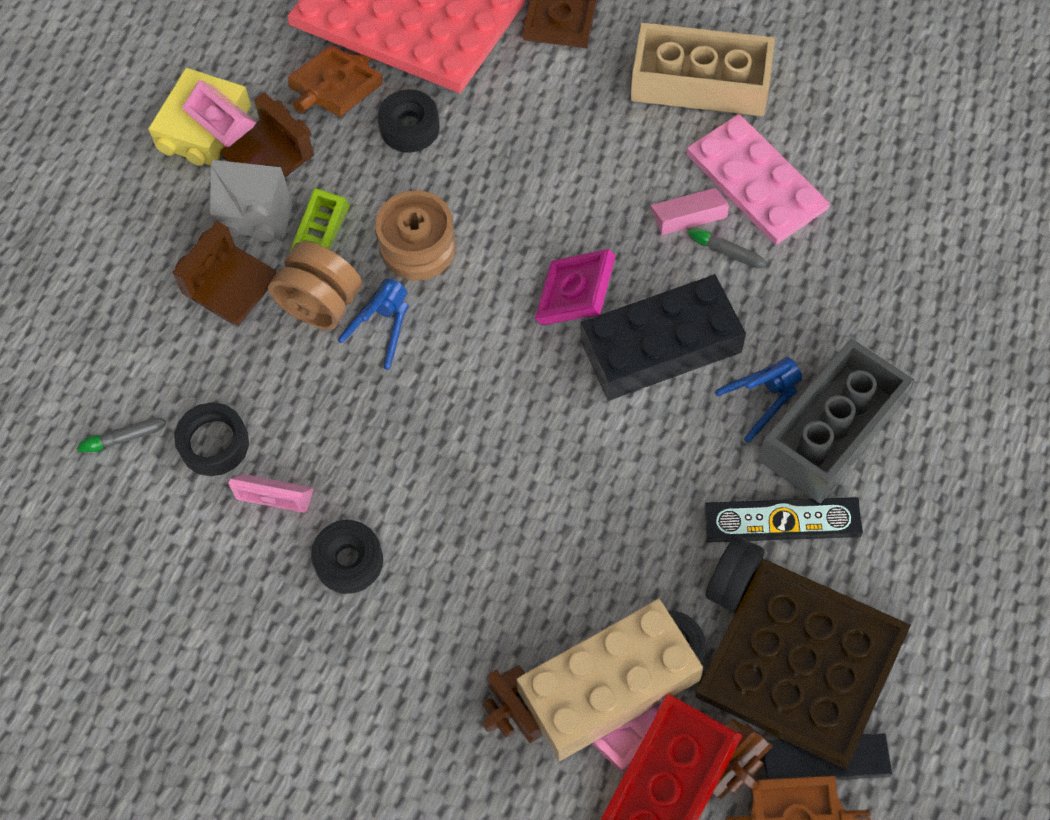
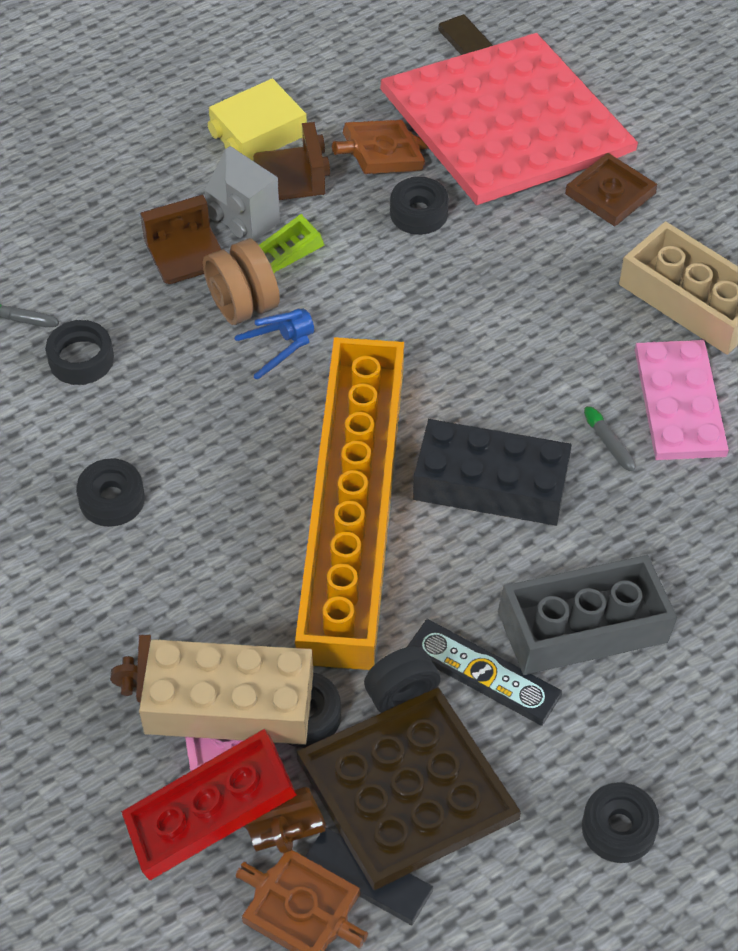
camera: 30 degrees right, 10 degrees down
(217, 113) = (268, 121): bright pink slope -> none
(271, 492) = (92, 415): bright pink slope -> none
(415, 235) = (352, 289): medium nougat wheel -> none
(571, 438) = (351, 505): none -> light orange brick
(575, 287) = (449, 394): dark pink plate -> none
(690, 211) = (599, 393): bright pink slope -> none
(777, 378) = (566, 556): blue plant -> none
(996, 563) = (624, 800): none -> black tyre

